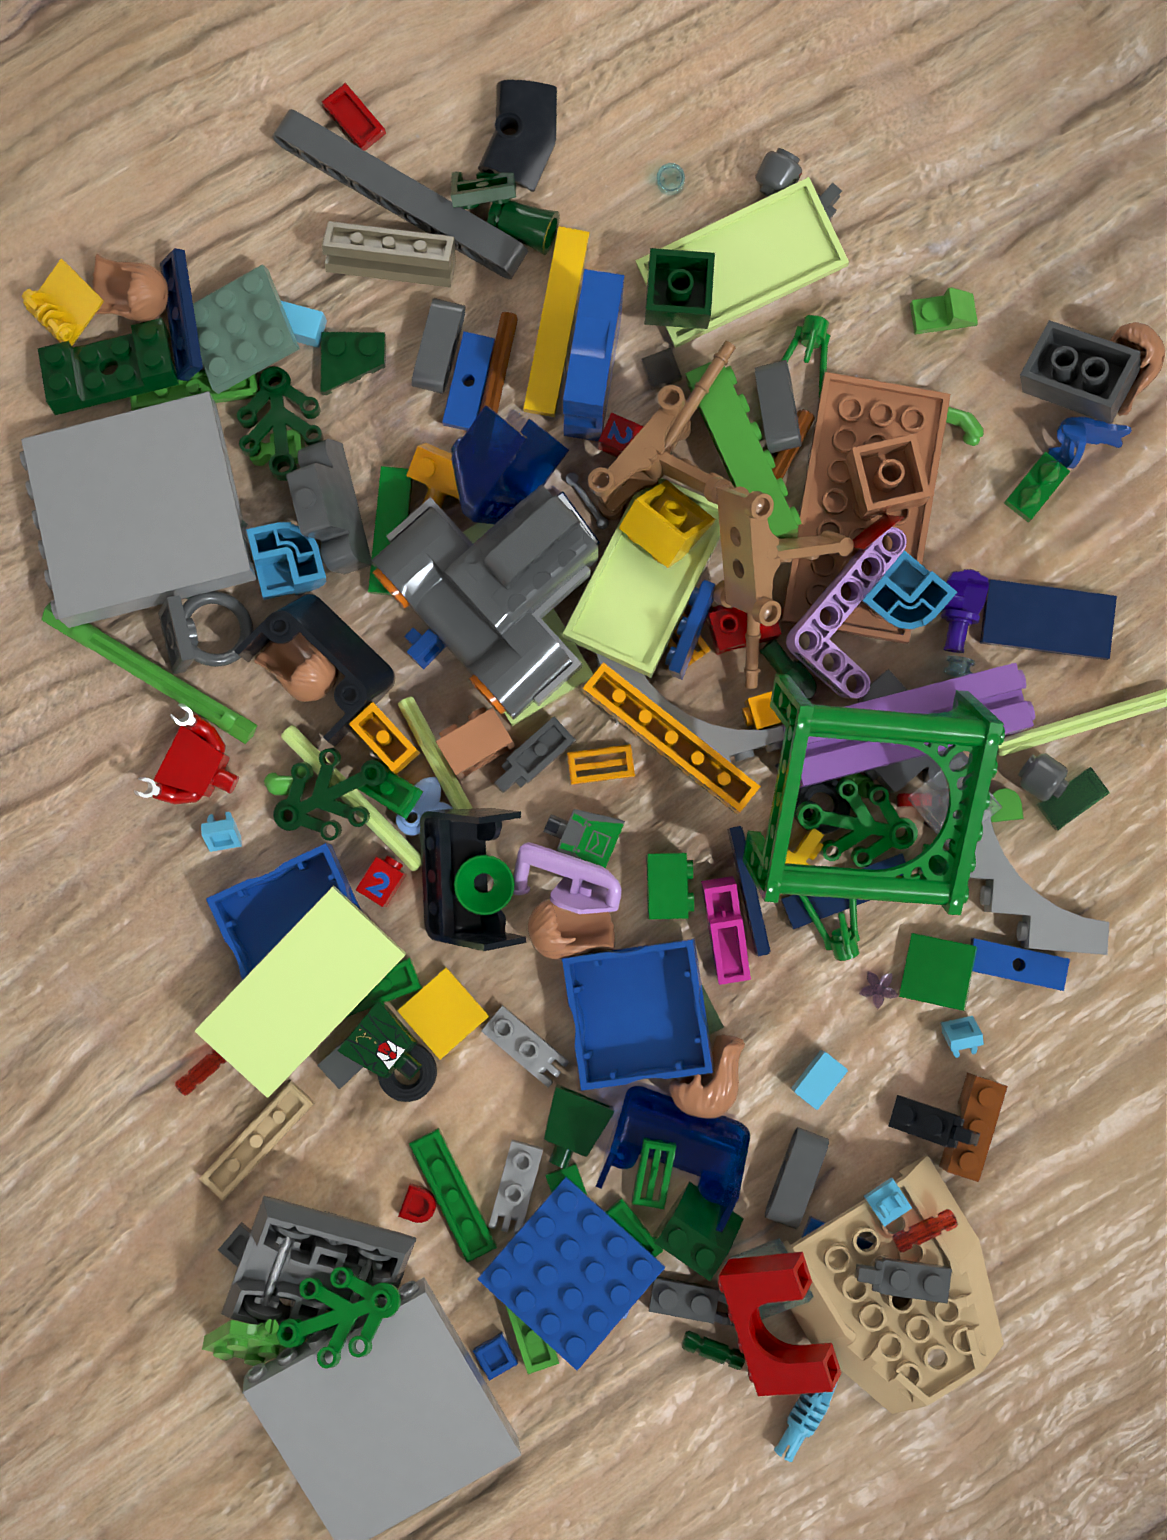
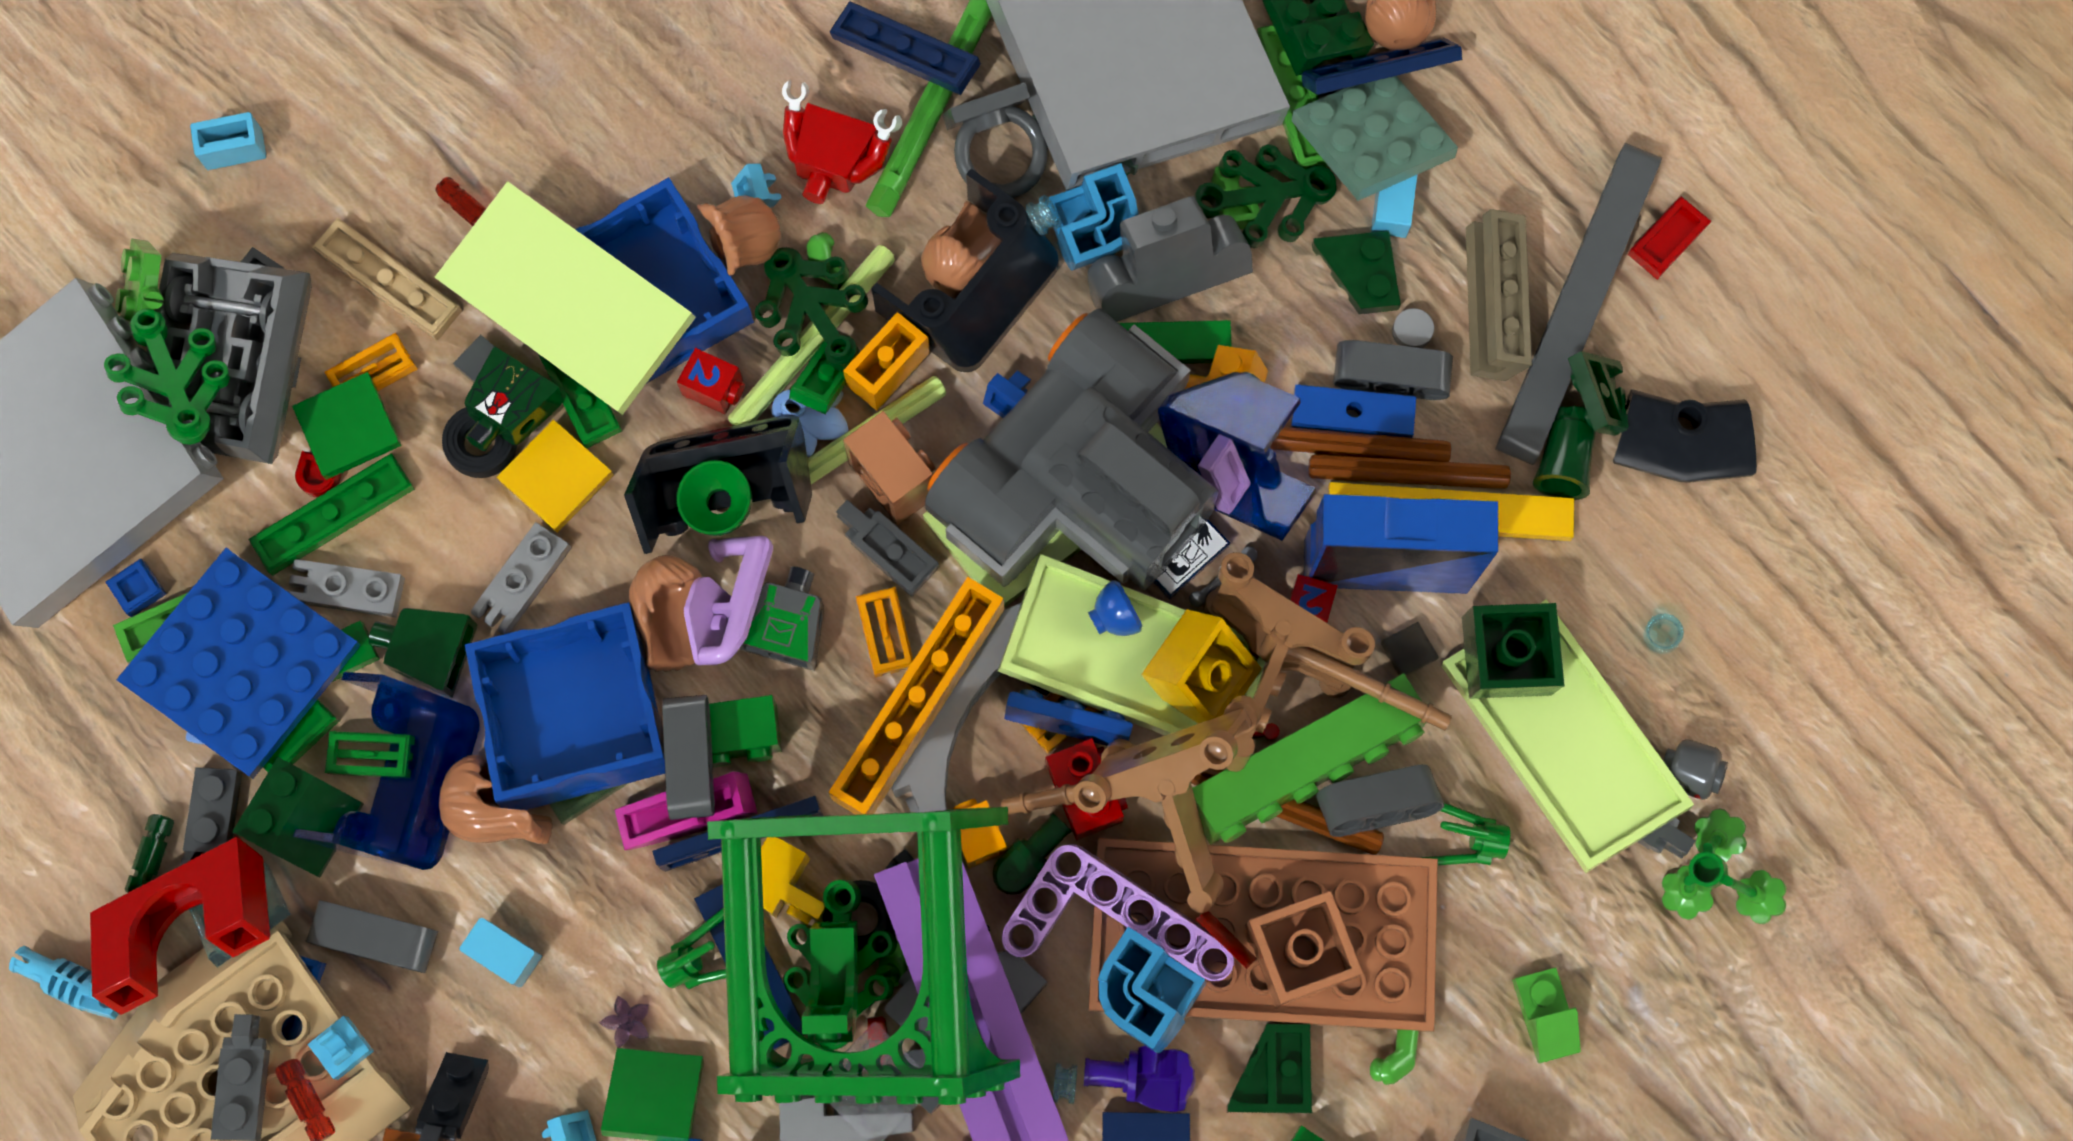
camera: 85 degrees right, 10 degrees down
(111, 696) = (905, 47): none -> dark blue tile
(118, 1267) = (228, 141): none -> medium azure piece
(262, 842) = (742, 231): none -> nougat piece
(279, 598) = (1043, 215): none -> clear light blue bush
(324, 1131) = (371, 353): none -> light orange tile
(383, 1178) = (346, 425): none -> green tile
(405, 326) = (1413, 328): none -> light grey tile
(516, 484) = (1225, 472): none -> lavender tile
(521, 346) = (1409, 471): none -> dark orange axle
(616, 581) = (1115, 612): none -> blue brick
(693, 920) = (688, 757): none -> dark grey beam
(867, 192) = (1691, 887): none -> bright green plant
(880, 825) = (833, 983): none -> green arch
(967, 512) = (1276, 1073): none -> dark green wing

